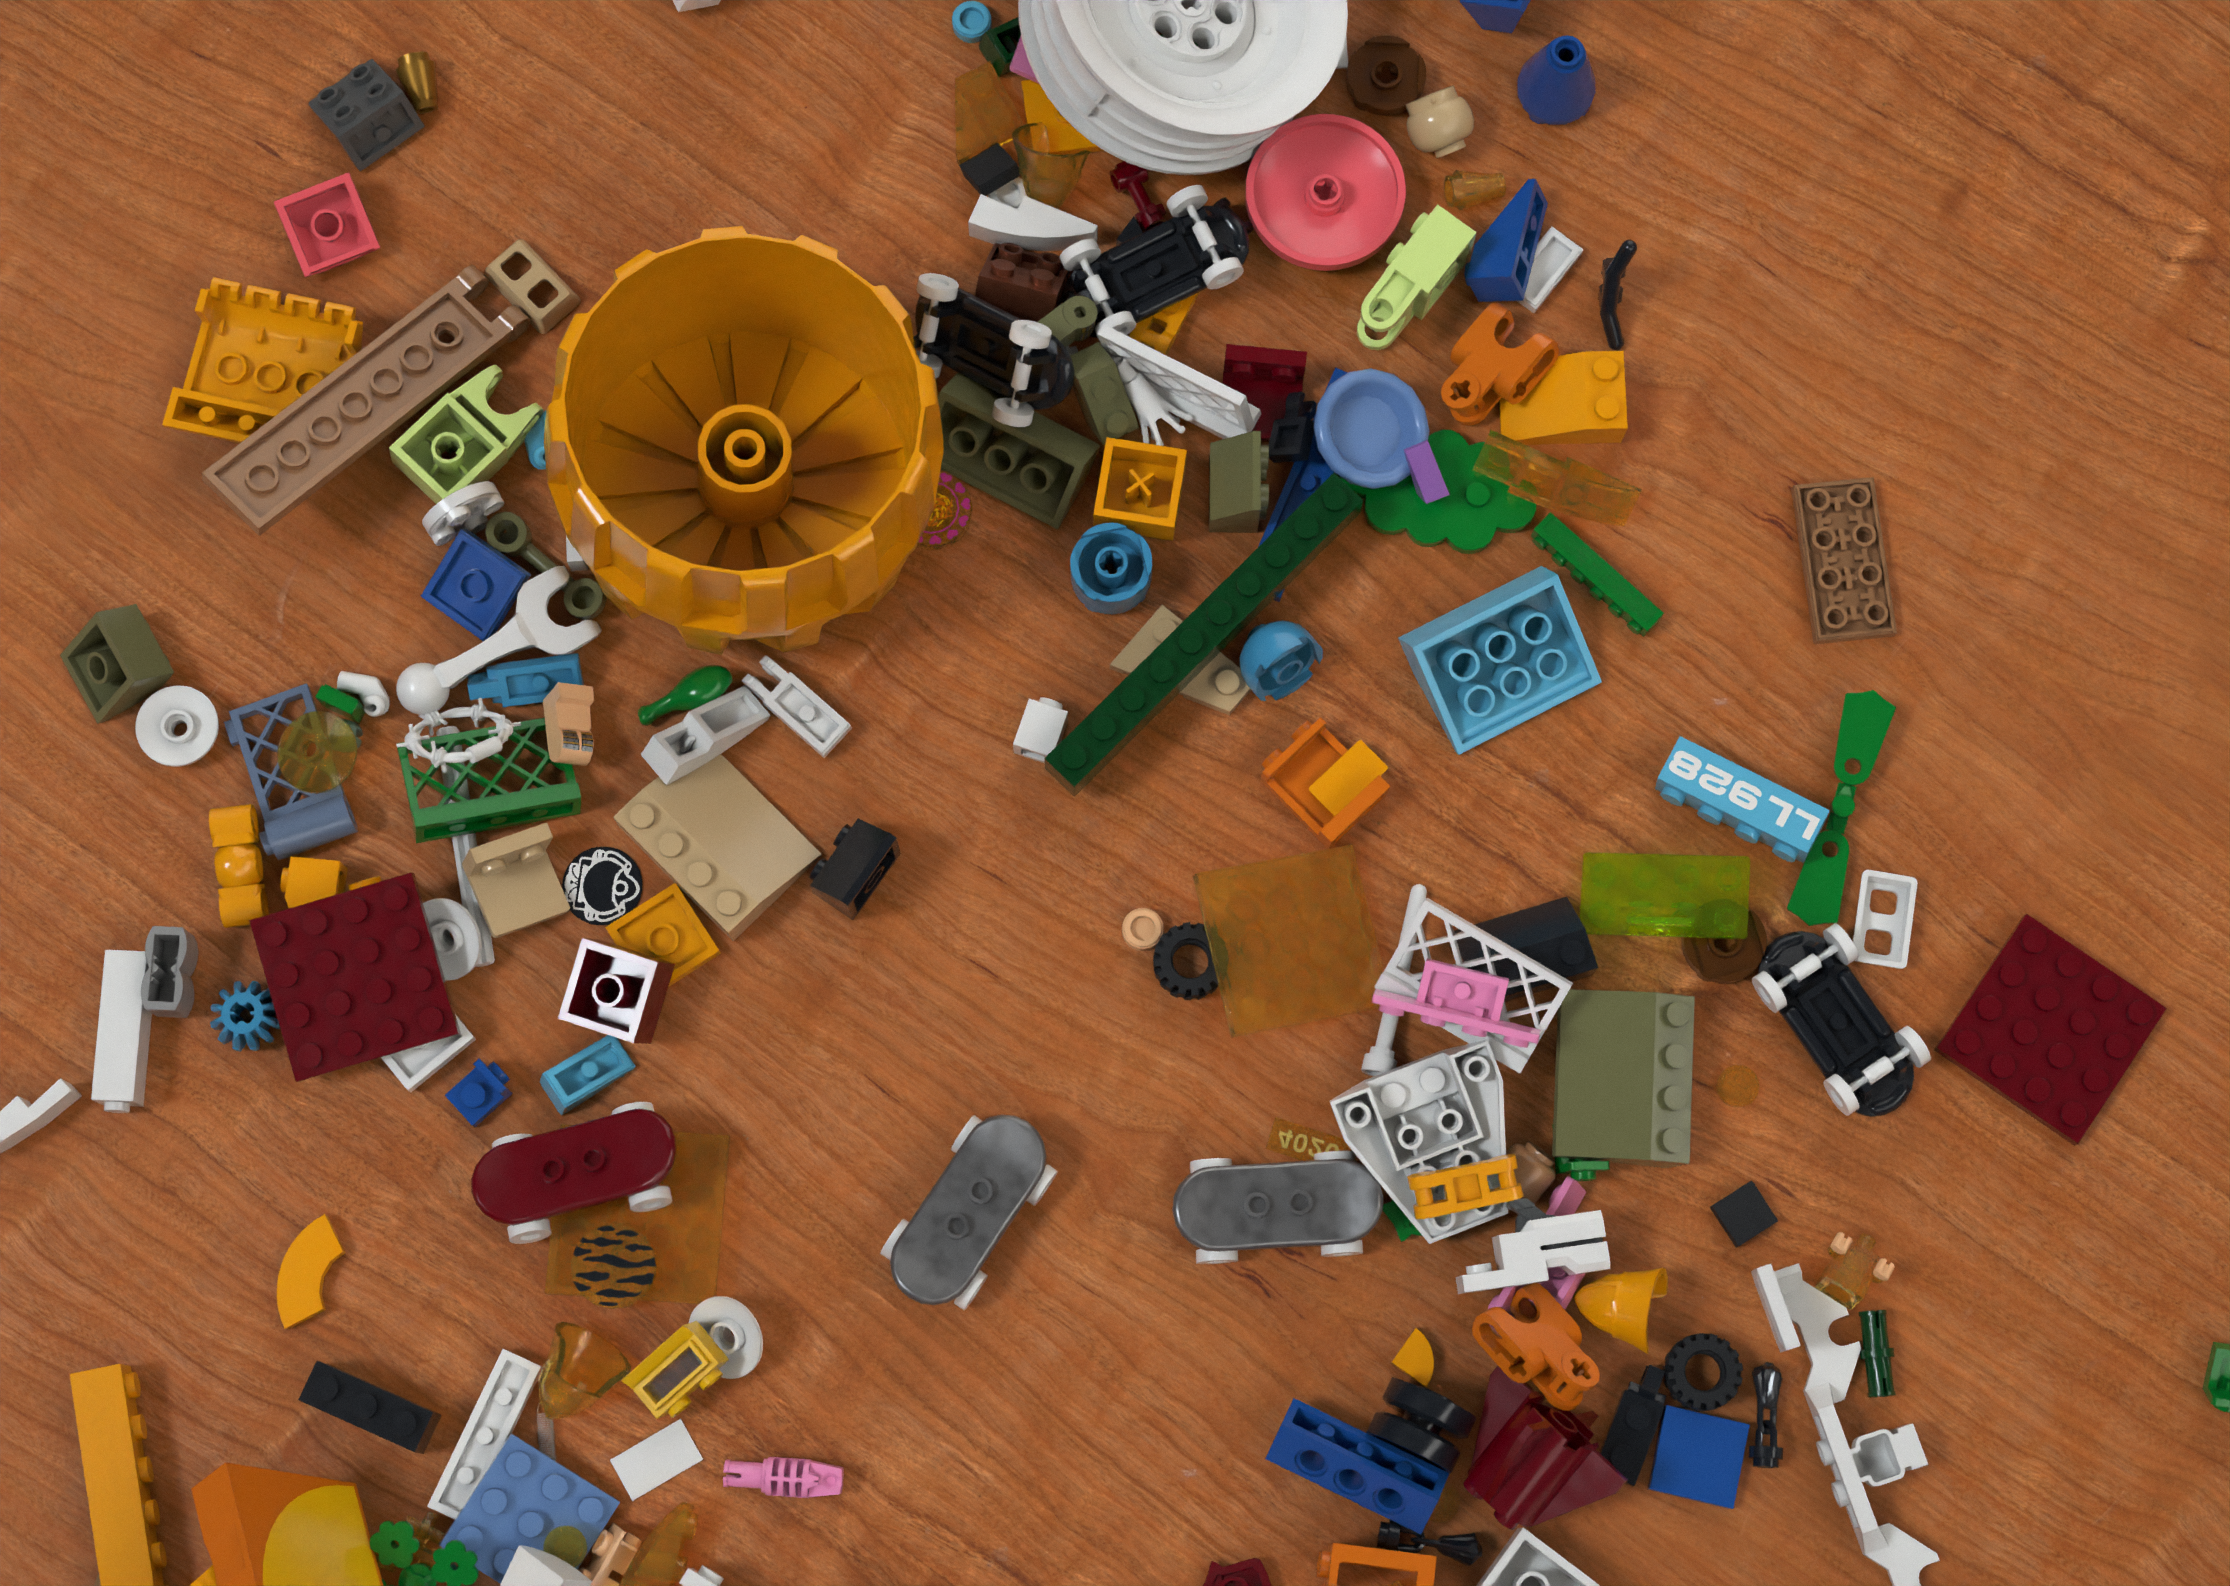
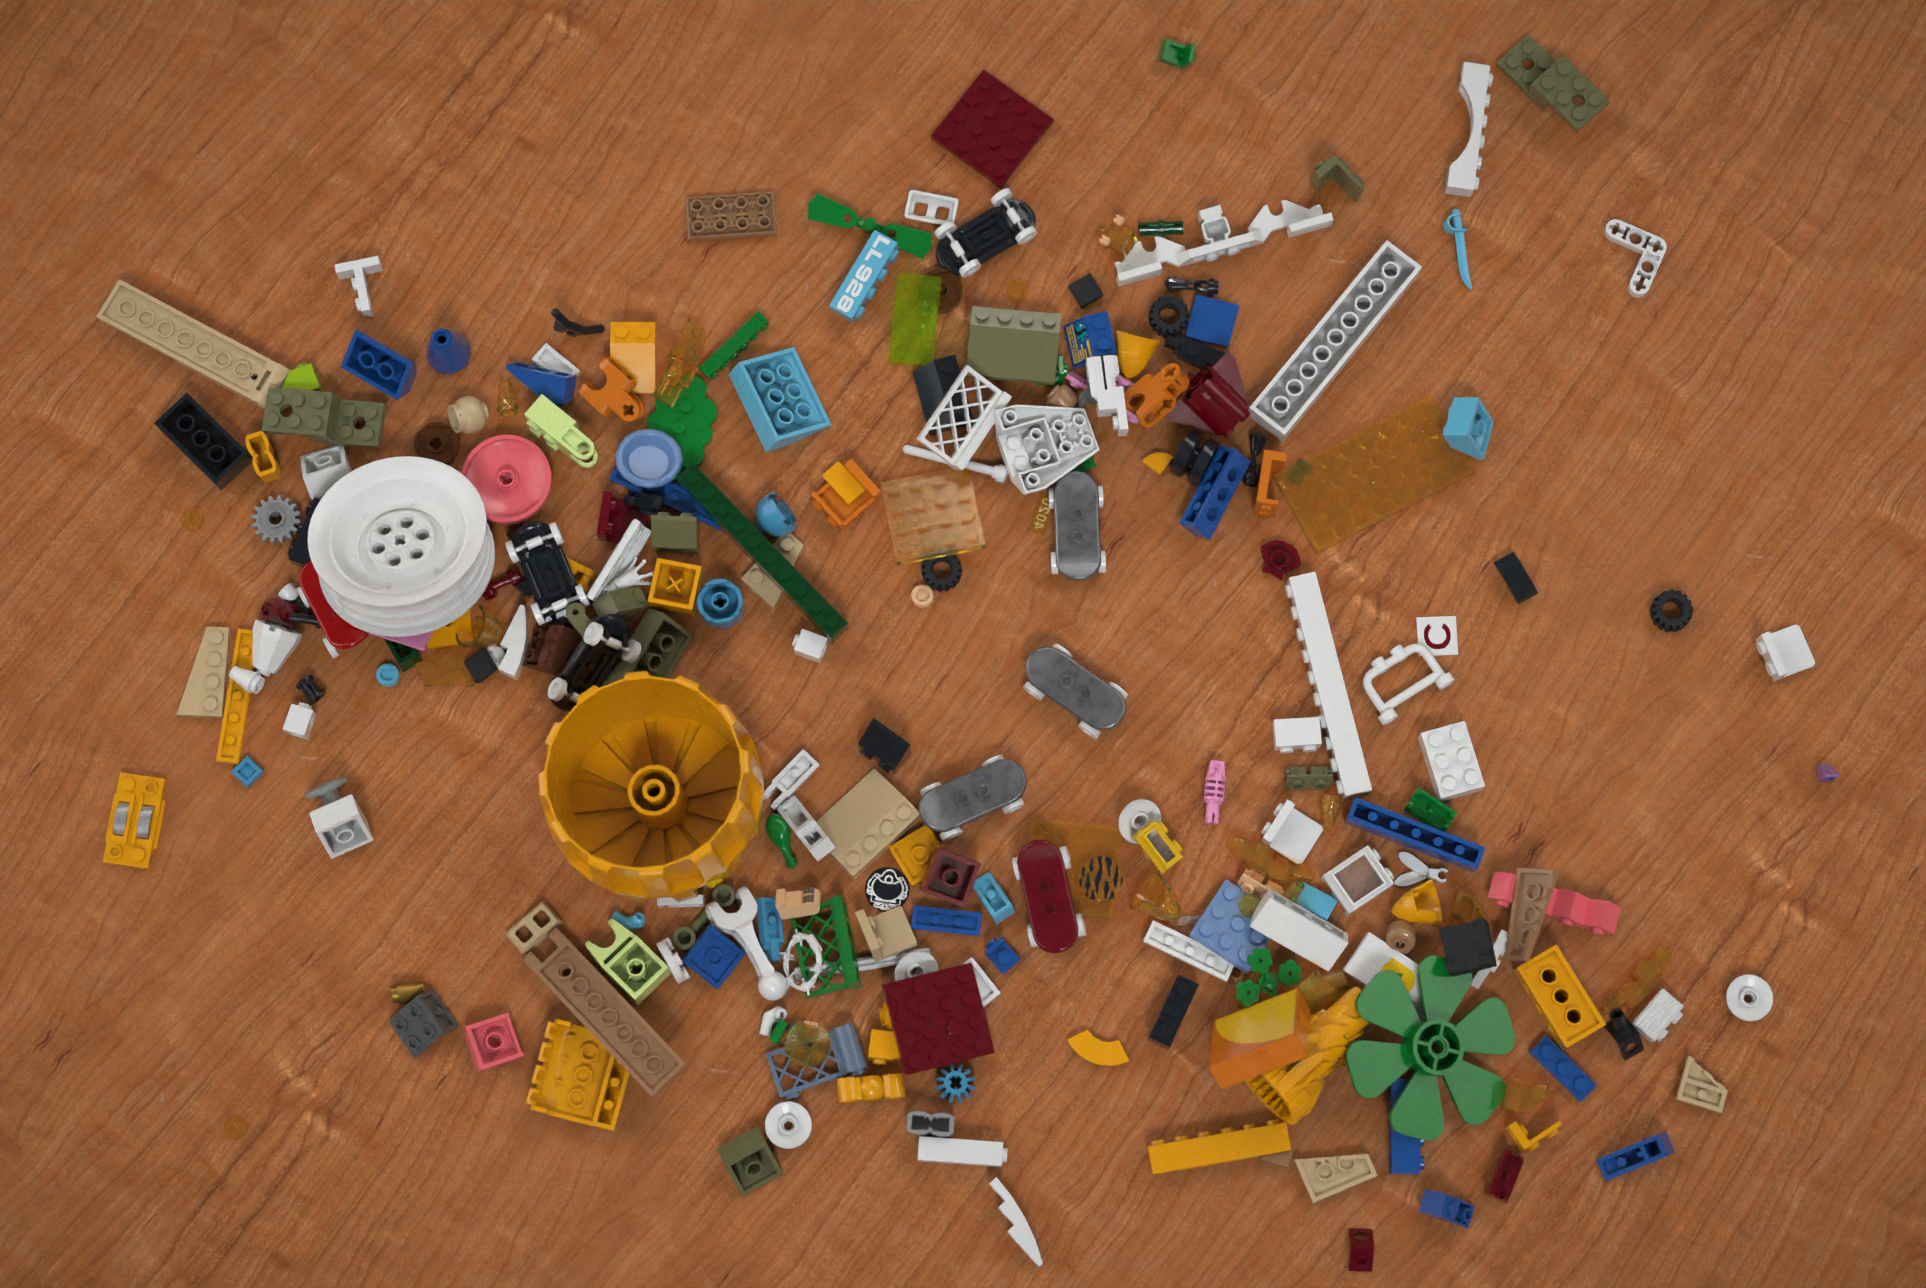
camera: 85 degrees left, 0 degrees up
(541, 991) = (946, 921): none -> blue plate
(656, 1459) = (1203, 861): white sticker -> none
(763, 1026) = (972, 796): none -> flat silver piece
(1425, 472) = (676, 431): medium lavender piece -> none
(1460, 998) = (972, 423): bright pink bracket -> none
(1465, 1187) = (1072, 426): light orange plate -> none
(1646, 1223) = (1089, 338): none -> slope

